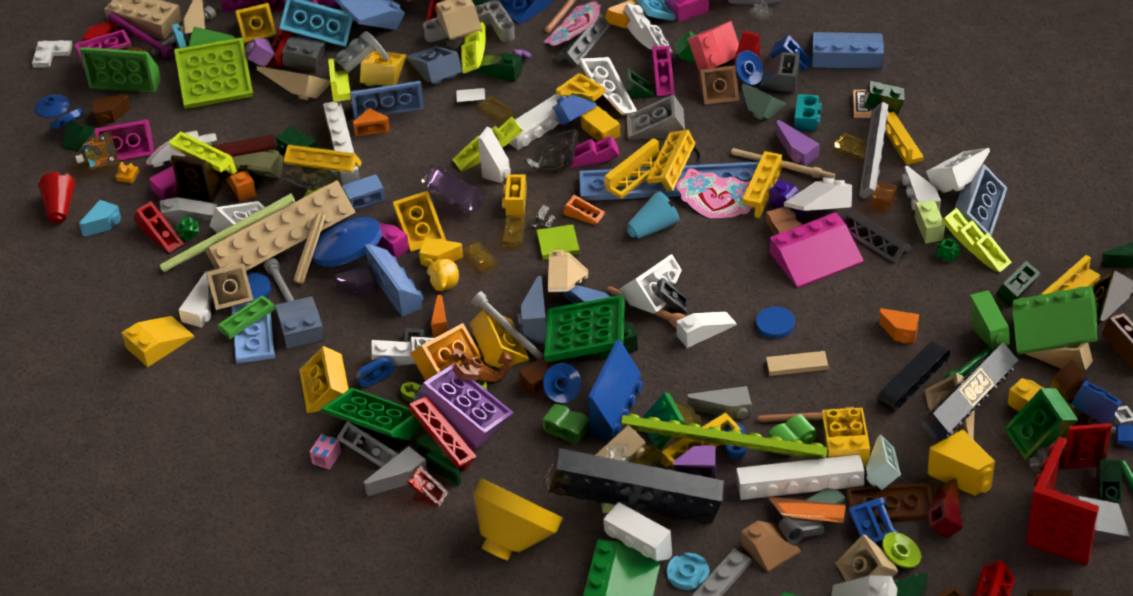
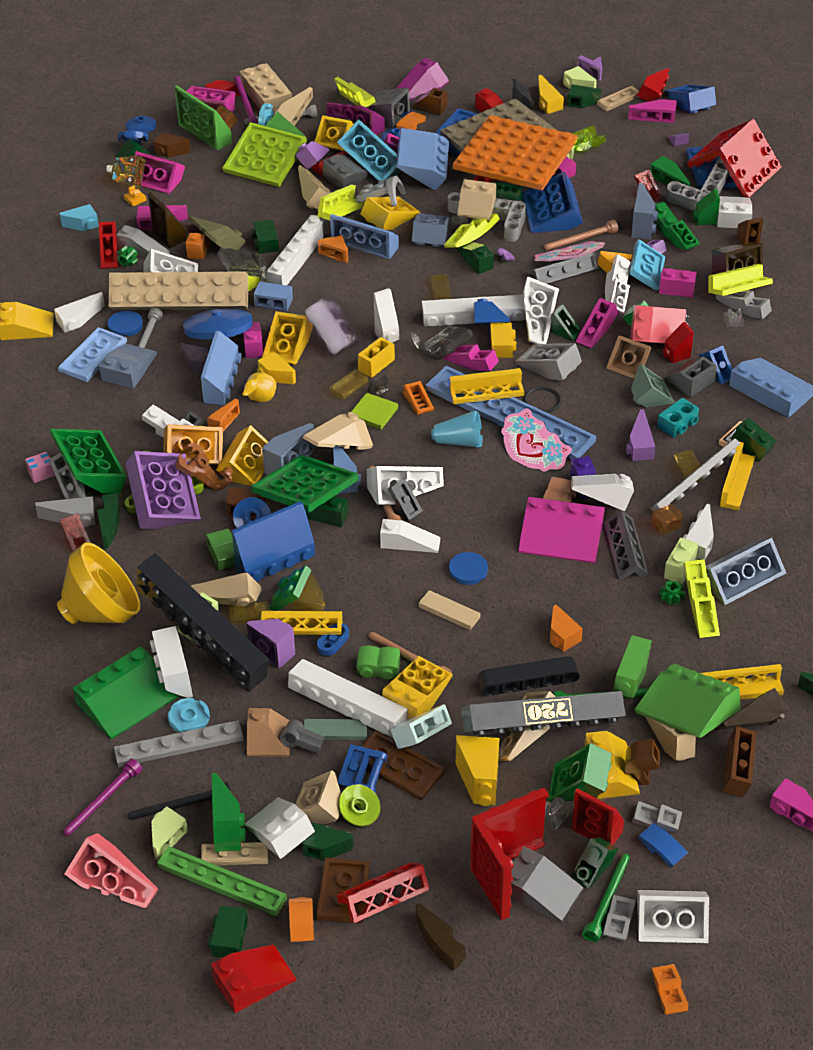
camera: 35 degrees right, 0 degrees up
(47, 49) = (169, 87): white plate -> none
(56, 195) = (68, 187): red cone -> none
(164, 152) = (179, 194): white slope -> none
(199, 150) = (182, 204): neon yellow fence -> none
(204, 245) = (104, 274): yellowish green piece -> none
(229, 286) = (99, 310): tan slope -> none
(246, 317) = (95, 340): bright green tile -> none
(248, 146) = (226, 218): clear red tile -> none
(309, 248) = (185, 314): tan axle -> none
(321, 158) = (256, 251): yellow fence -> none
(322, 379) = (100, 412): yellow slope -> none
(374, 372) = (136, 430): blue plate -> none
(442, 433) = (123, 498): red fence -> none
(470, 94) = (433, 266): white sticker -> none
(471, 154) = (405, 307): neon yellow slope -> none
(481, 257) = (305, 390): clear yellow plate -> none
(481, 301) = (250, 417): light grey piece -> none
(581, 87) = (509, 301): yellow wing -> none
(618, 451) = (219, 591): clear tile -> none
(675, 159) = (521, 394): yellow fence -> none
(731, 438) = (320, 632): lime plate -> none
(732, 401) = (357, 606): light grey slope -> none
(749, 67) = (672, 353): blue dish -> none
(762, 180) = (577, 448): yellow fence -> none
(809, 509) = (324, 727): orange sticker -> none
(815, 172) = (633, 469): tan bar -> none
(945, 510) = (425, 799): dark red slope -> none
(957, 170) = (747, 532): white slope -> none
(1018, 283) = (697, 653): dark green brick -> none
(1096, 403) = (647, 790): blue brick -> none

